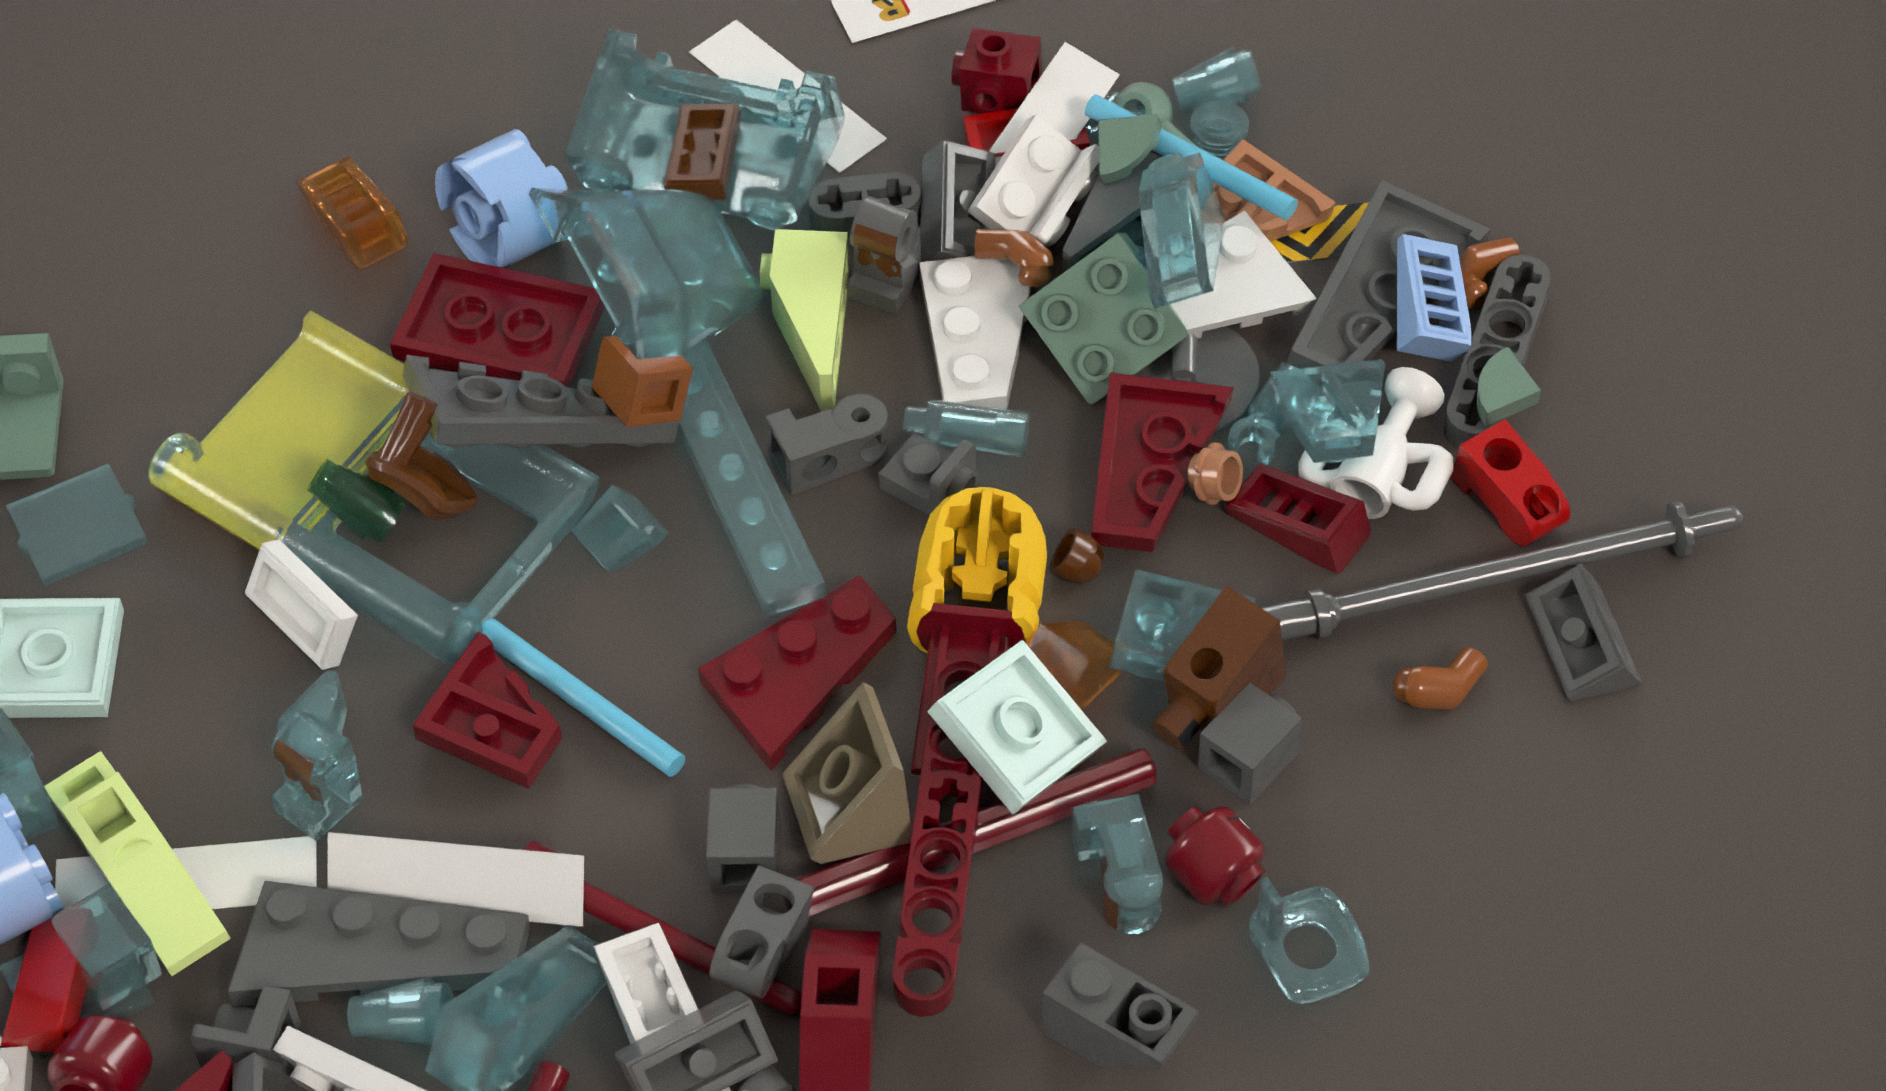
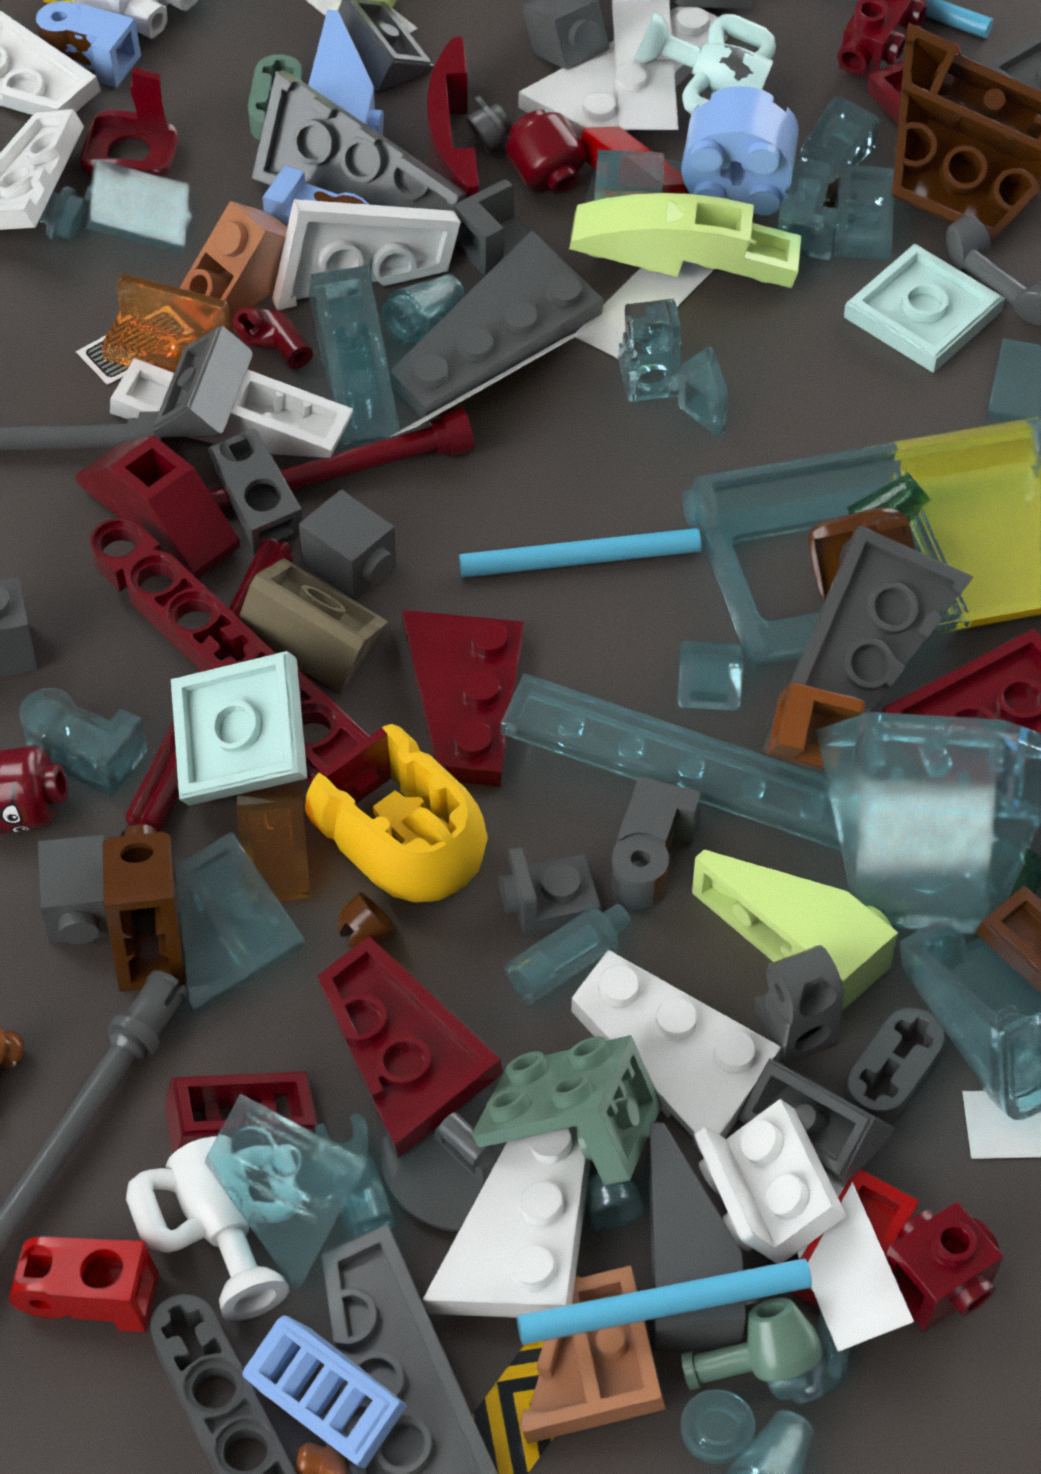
camera: 130 degrees right, 0 degrees up
(300, 604) = (819, 436): white tile -> none
(489, 717) = (611, 485): dark red wing -> none
(1021, 249) = (696, 1106): dark orange arm -> none
(1125, 144) = (722, 1242): sand green tile -> none
(1179, 228) = (566, 1184): clear light blue slope -> none
(1215, 474) = (329, 1065): nougat plate -> none
(1504, 388) = (171, 1354): sand green tile -> none

